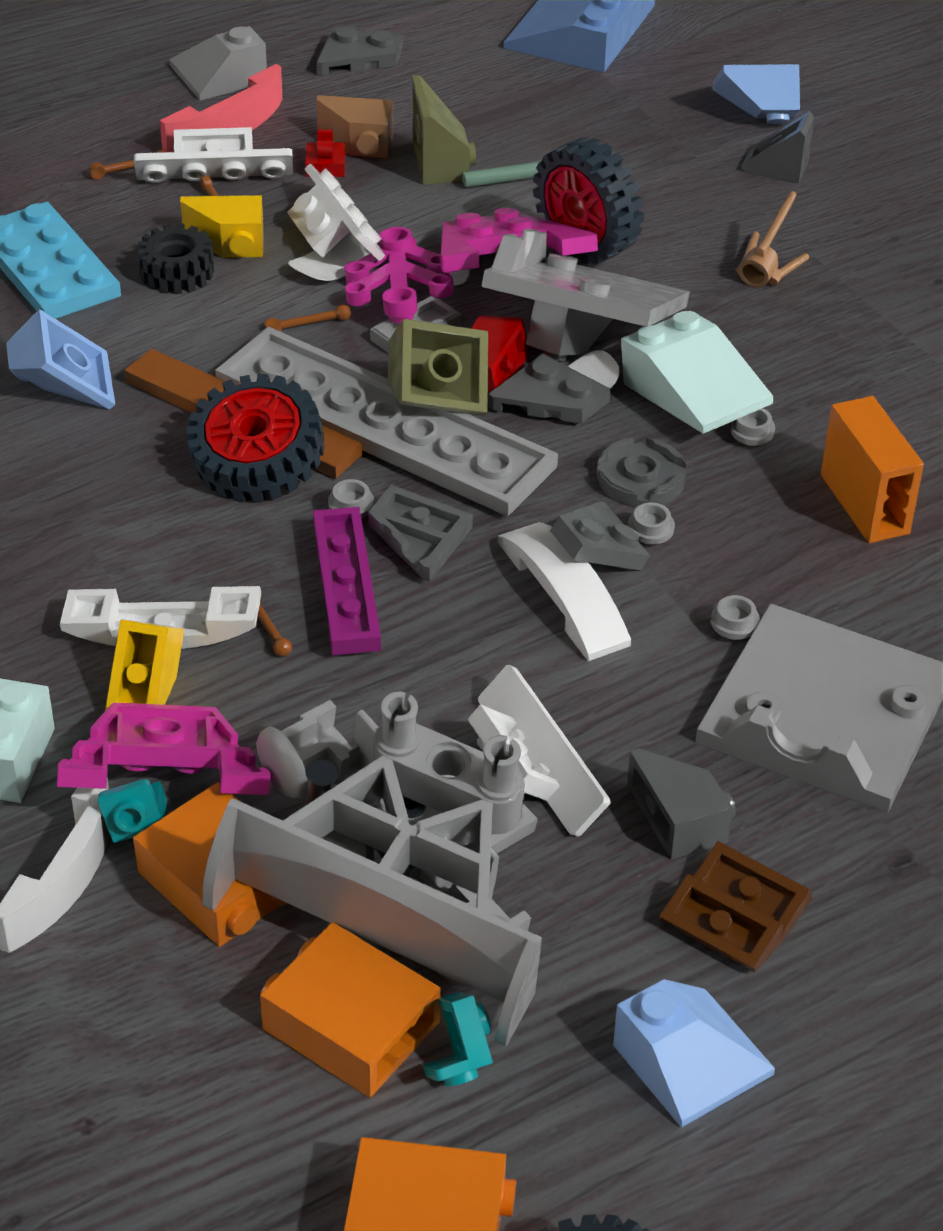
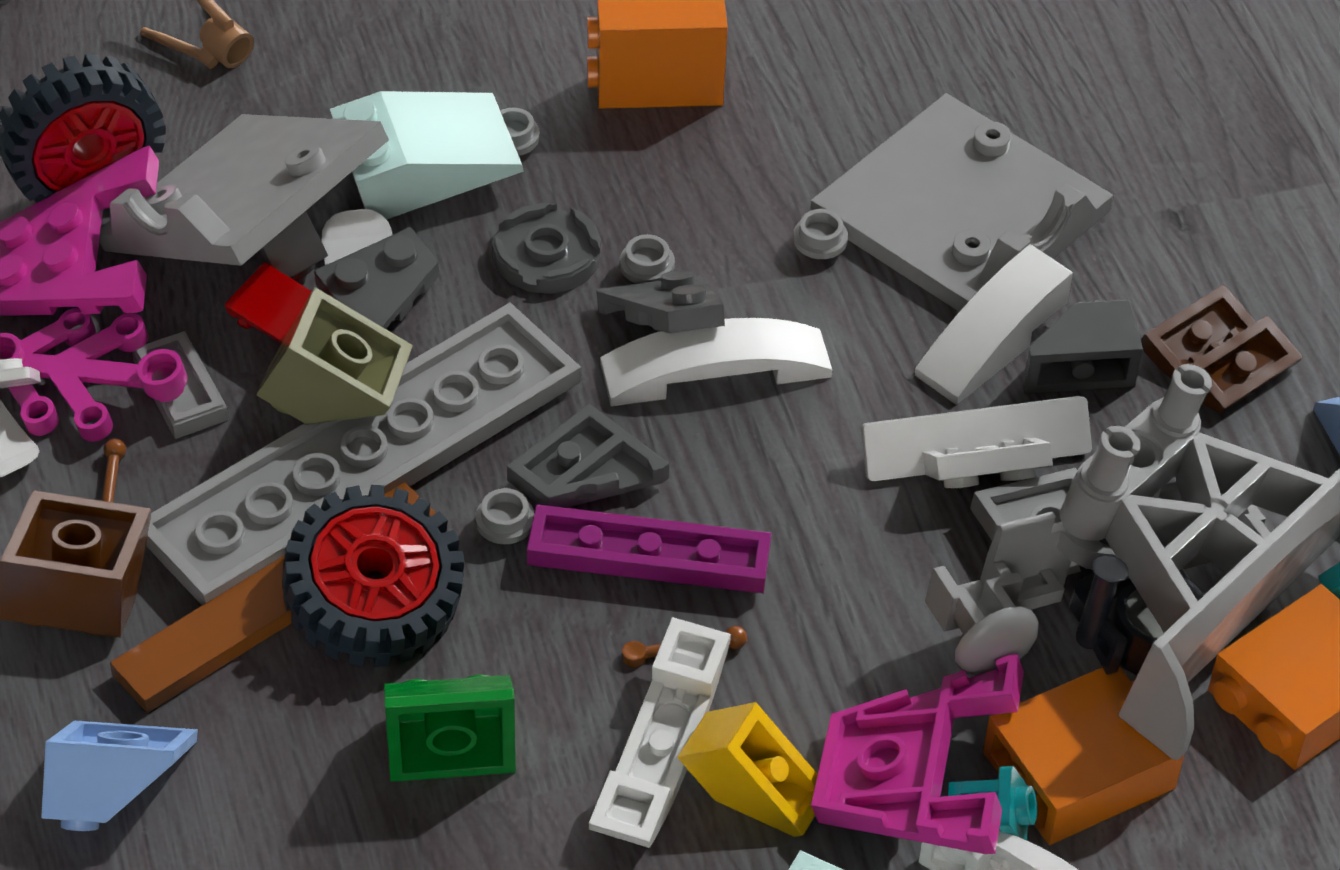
camera: 75 degrees left, 5 degrees up
(136, 499) = (450, 727): none -> green slope
(218, 305) = (74, 564): none -> reddish brown slope
(682, 733) = (995, 324): none -> white slope

